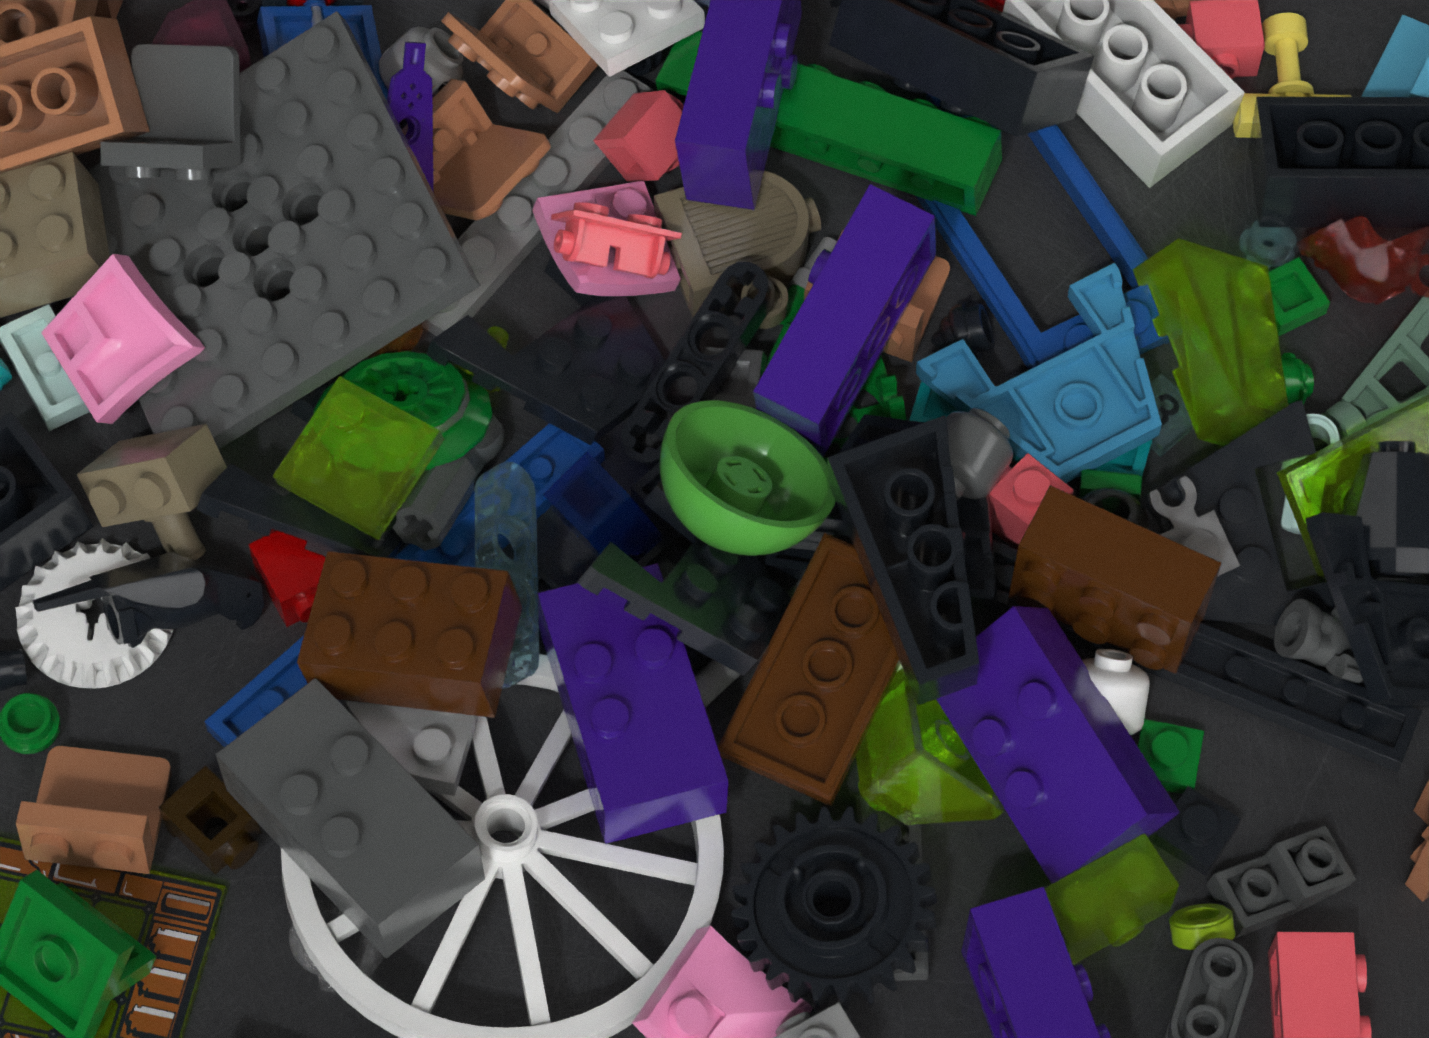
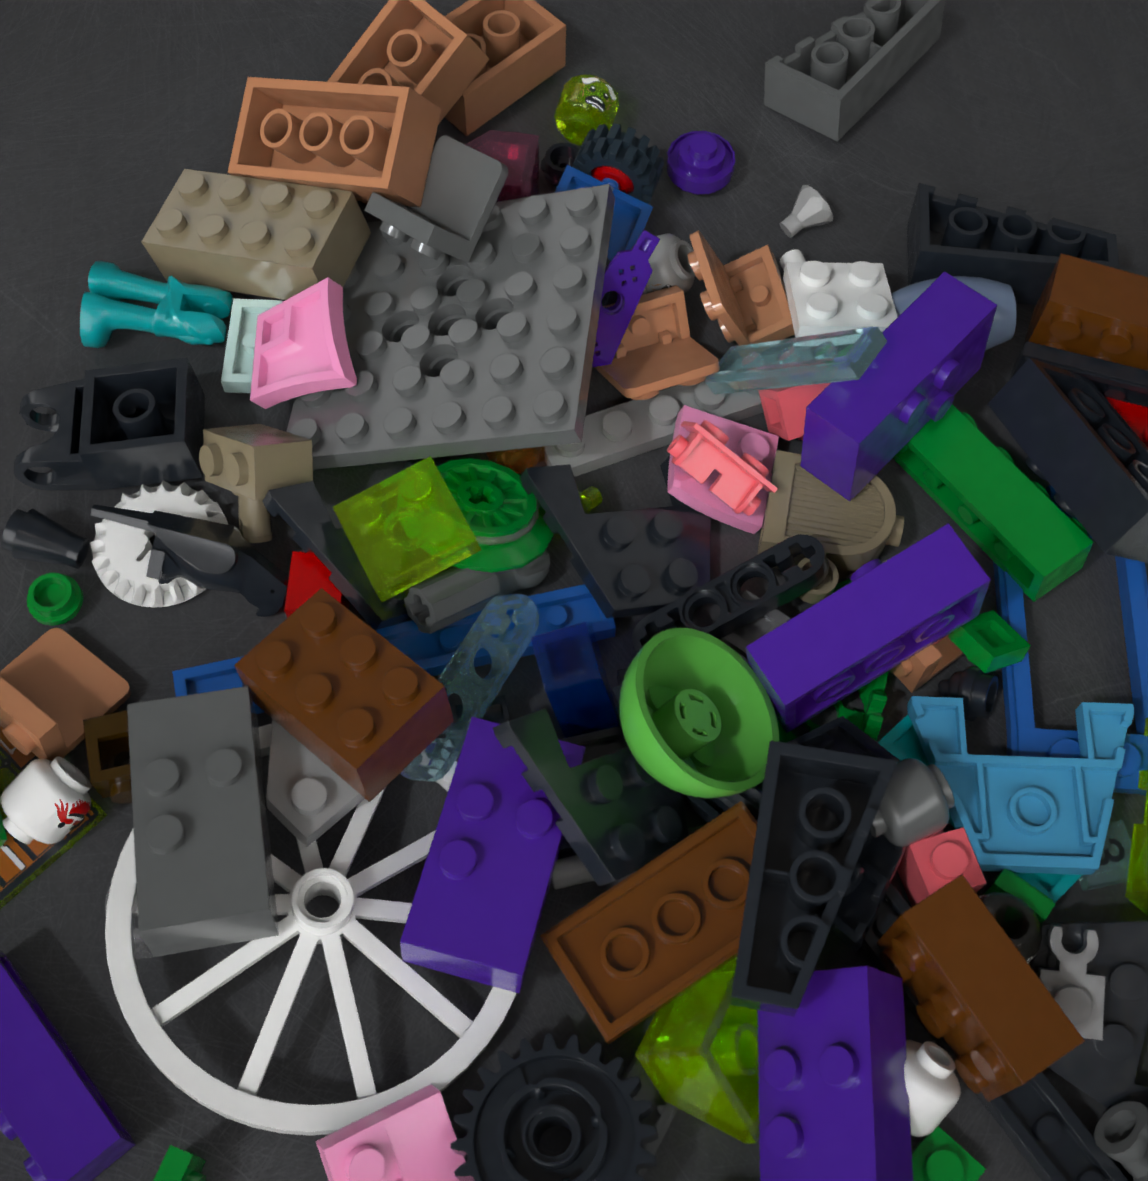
camera: 30 degrees right, 0 degrees up
(172, 899) = (45, 801): none -> white head
(630, 101) = (797, 361): none -> clear light blue tile
(958, 275) = (990, 642): none -> green plate

